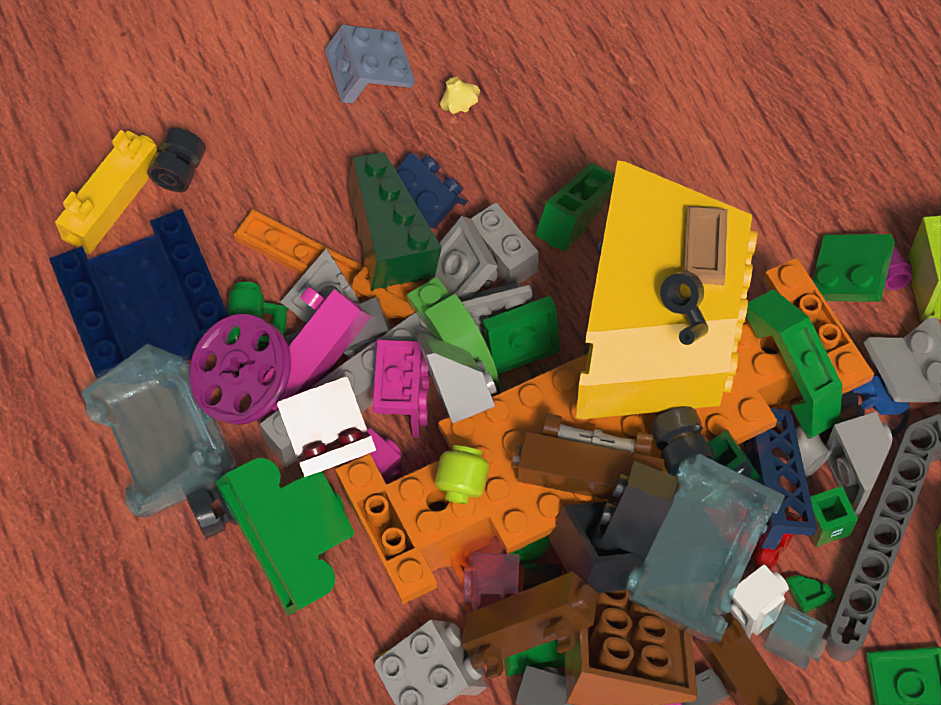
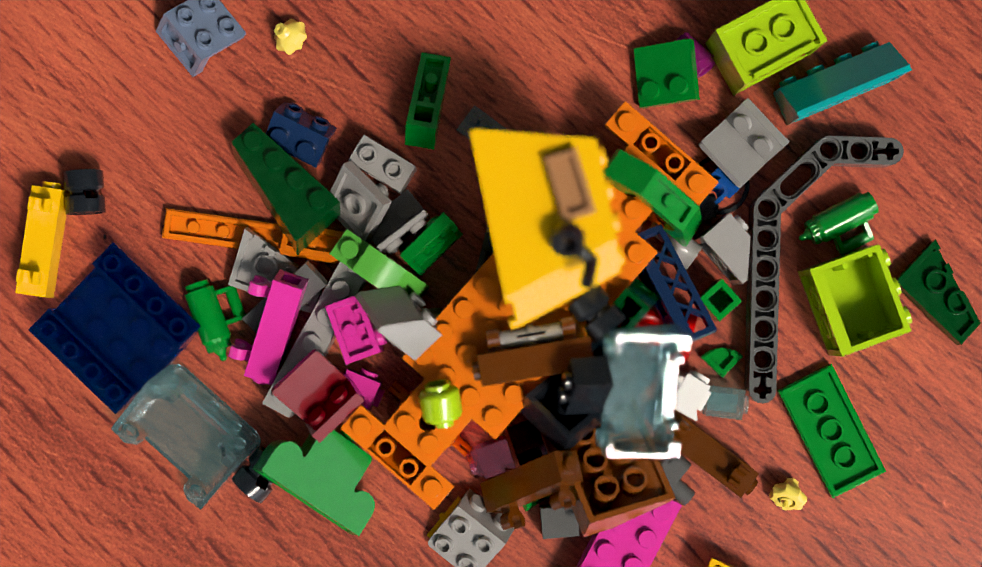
camera: 25 degrees left, 25 degrees up
(250, 376) = (223, 351): magenta wedge -> none

